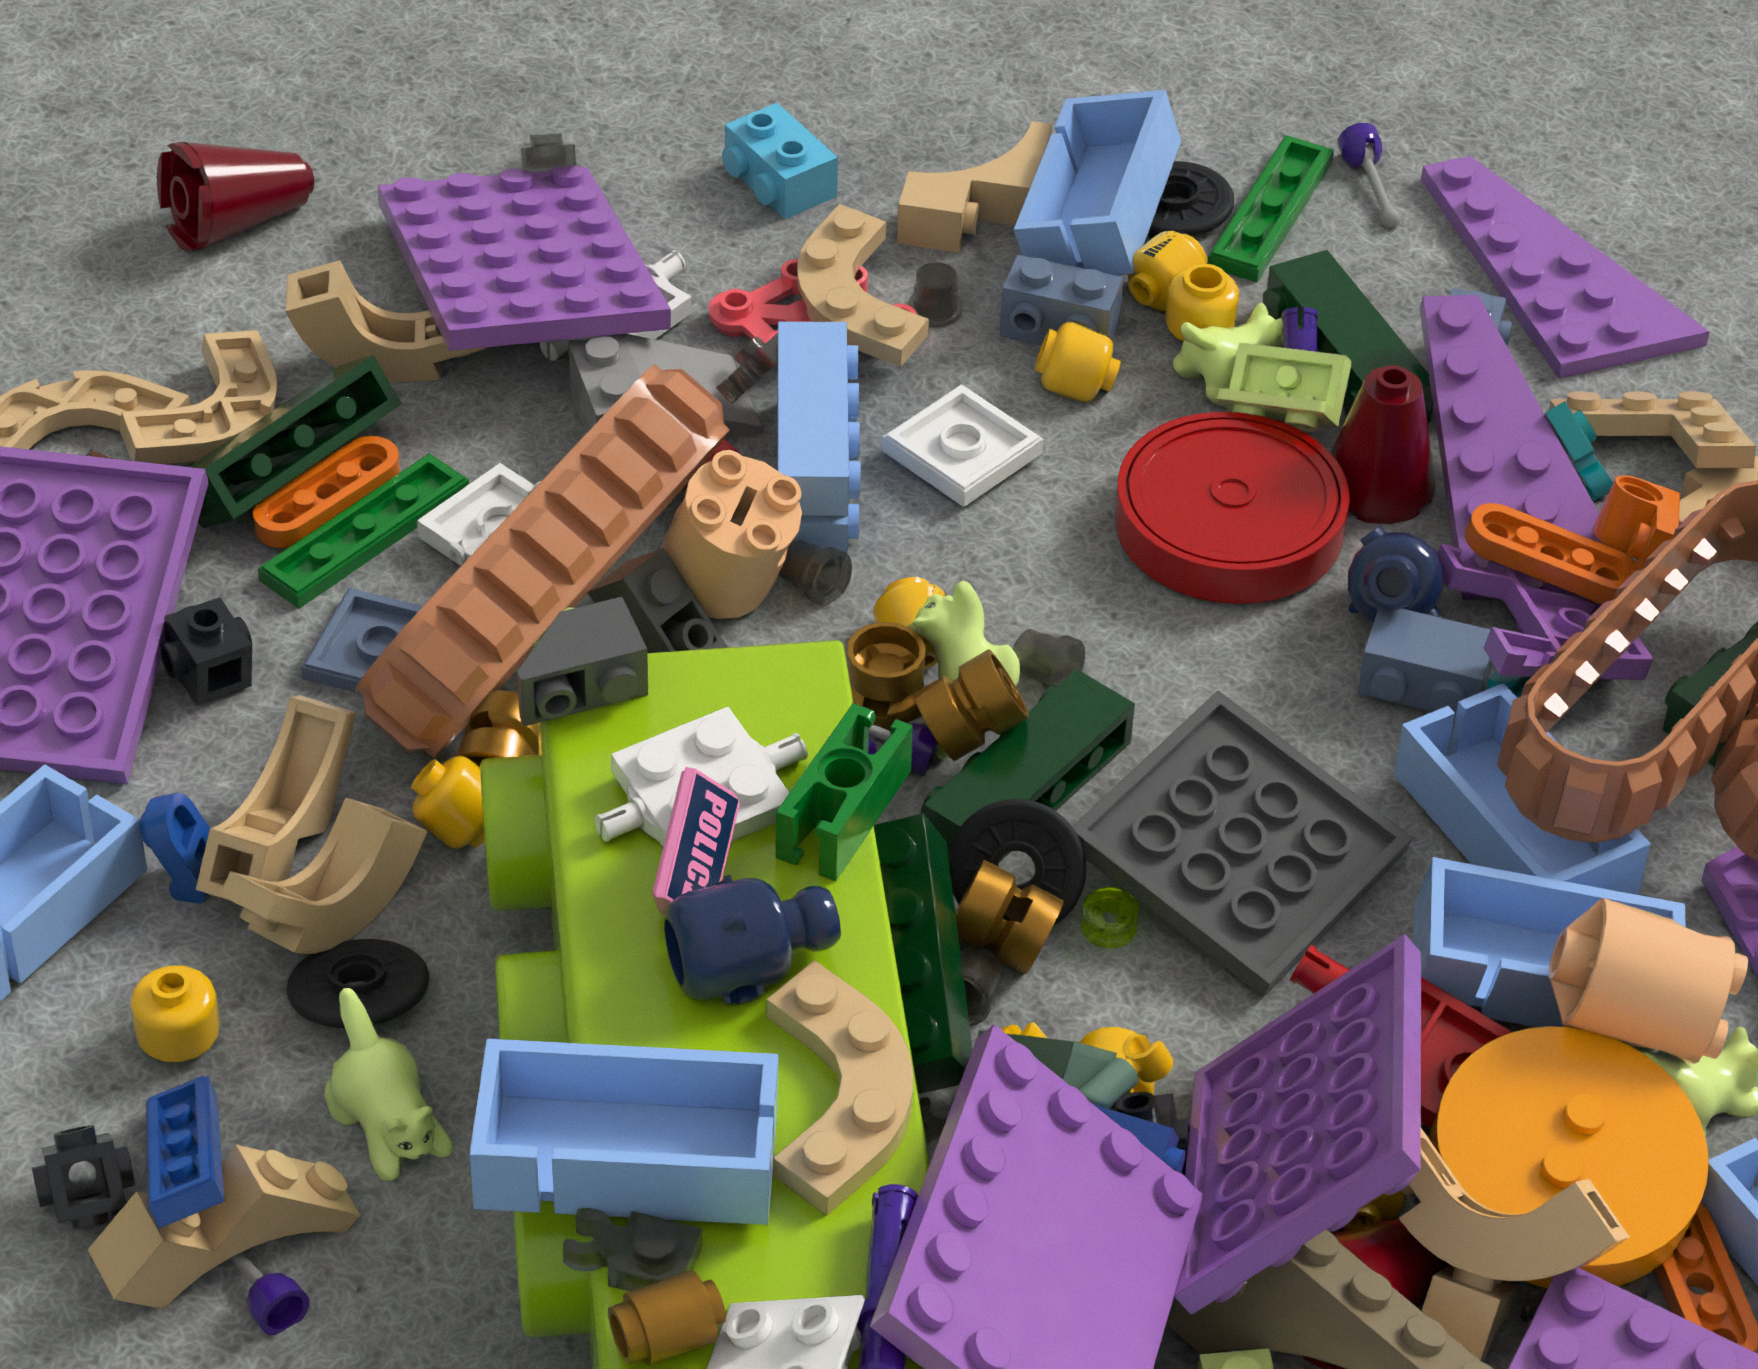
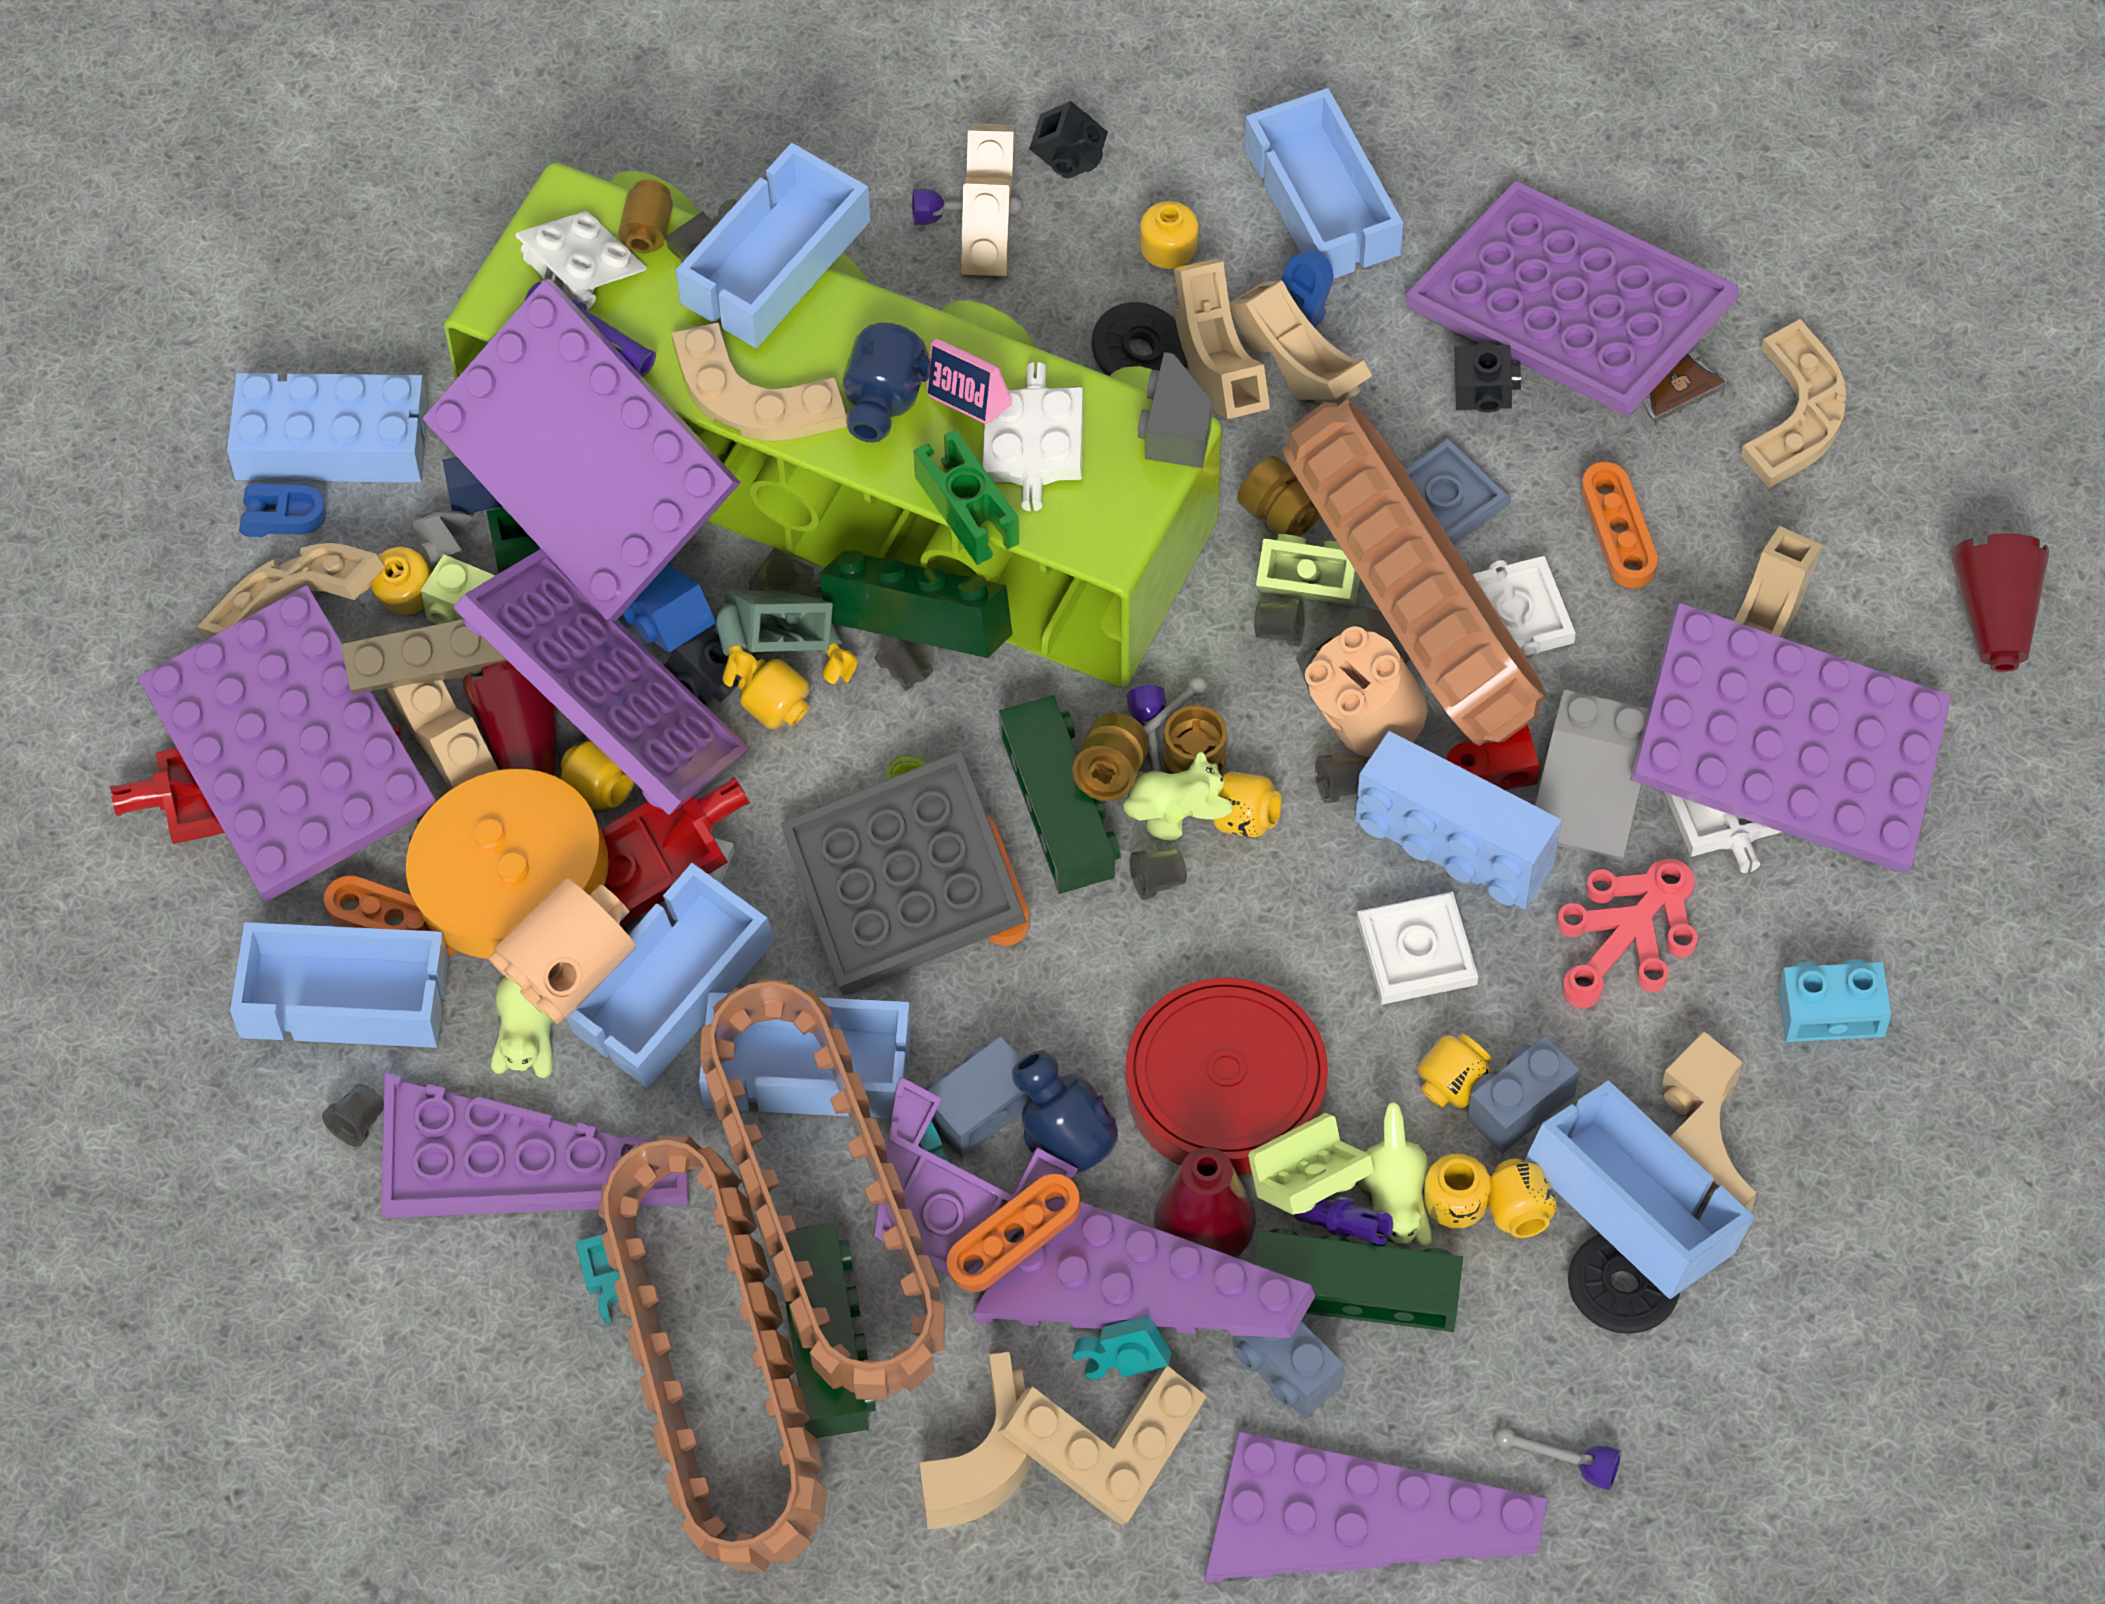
camera: 125 degrees right, 15 degrees up
(183, 1151) = (1038, 176): blue tile -> none
(242, 396) = (1733, 496): tan plate -> none
(293, 438) = (1673, 509): dark green brick -> none
(360, 531) = (1571, 538): green tile -> none
(380, 1088) = (1043, 312): yellowish green animal -> none
(450, 802) = (1245, 446): yellow head -> none
(547, 151) = (1924, 830): clear smoke plate -> none
(754, 363) = (1580, 844): clear smoke plate -> none
(833, 295) = (1633, 935): tan plate -> none
(937, 295) = (1598, 1039): clear smoke piece -> none
(1024, 828) = (969, 725): black wheel -> none
(1029, 911) = (932, 694): pearl gold wheel -> none
(1271, 208) = (1573, 1353): green tile -> none
(1503, 1246) = (455, 761): tan arch -> none
(1637, 517) = (962, 1287): orange plate -> none

